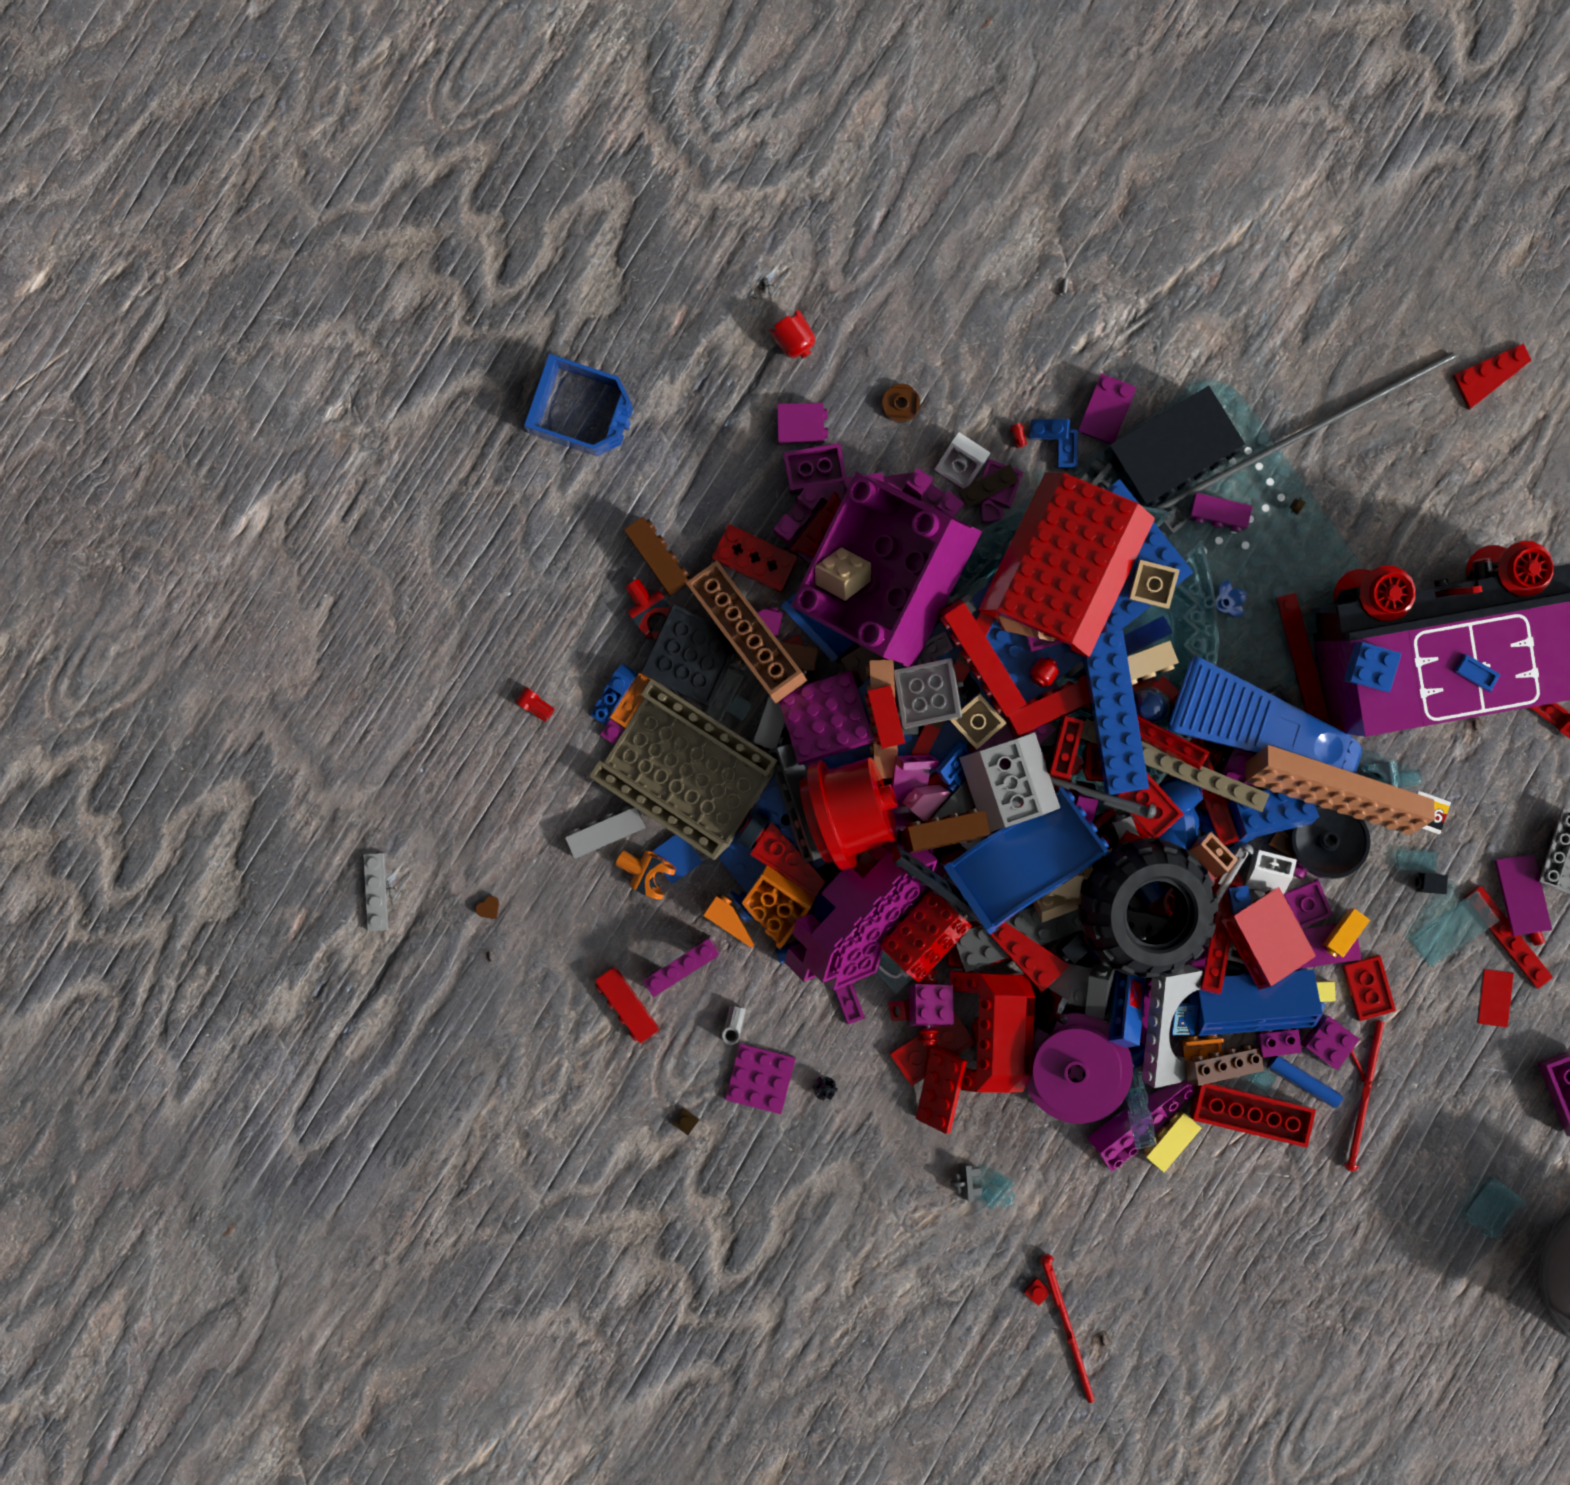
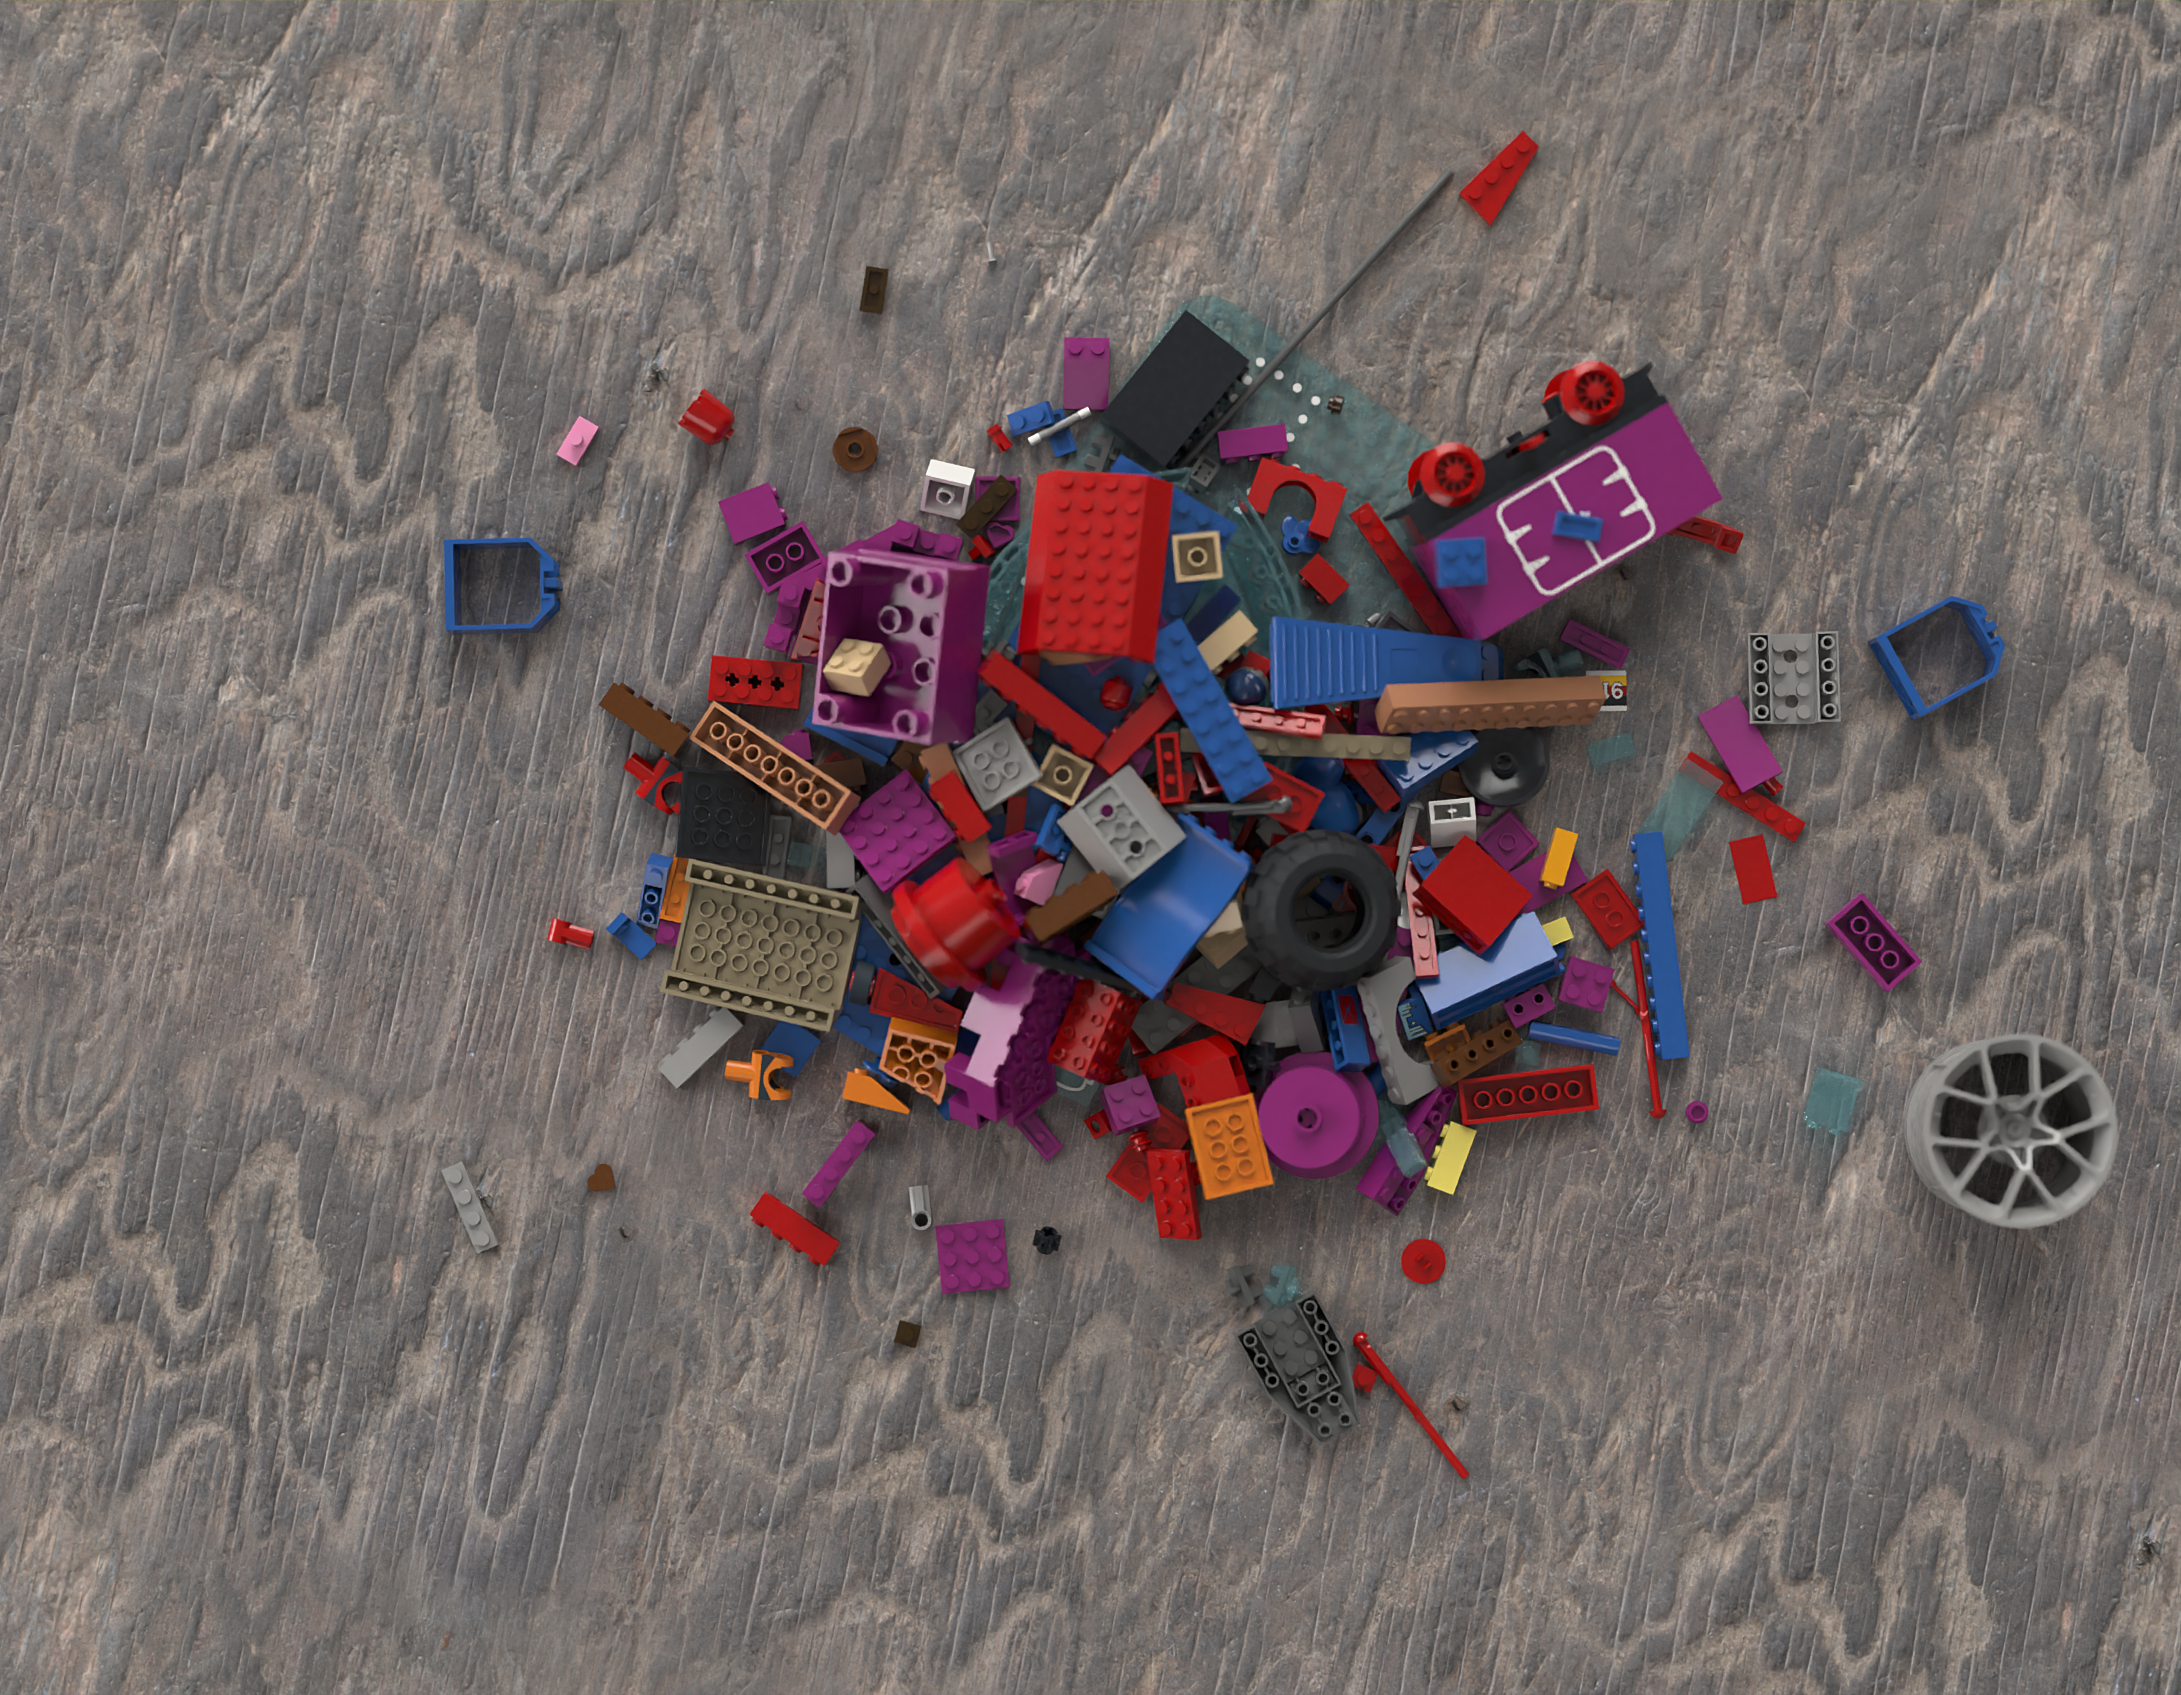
camera: 20 degrees left, 0 degrees up
(582, 723) = (631, 935): none -> blue bracket
(684, 317) = (578, 441): none -> bright pink tile
(961, 282) = (874, 290): none -> dark brown plate
(973, 517) = (981, 548): none -> red tile
(994, 1266) = (1303, 1367): none -> dark grey wedge
(1002, 1071) = (1228, 1146): none -> orange plate
(1070, 443) = (1059, 426): none -> light grey bar
(1119, 1215) = (1423, 1261): none -> red piece
(1213, 854) = (1378, 825): nougat brick -> none
(1237, 642) = (1322, 580): none -> red brick
(1263, 575) = (1325, 495): none -> red arch
(1382, 1177) = (1696, 1112): none -> magenta plate
(1402, 1033) = (1660, 945): none -> blue brick
(1432, 883) = (1635, 768): black brick -> none
(1434, 772) = (1594, 644): none -> magenta plate

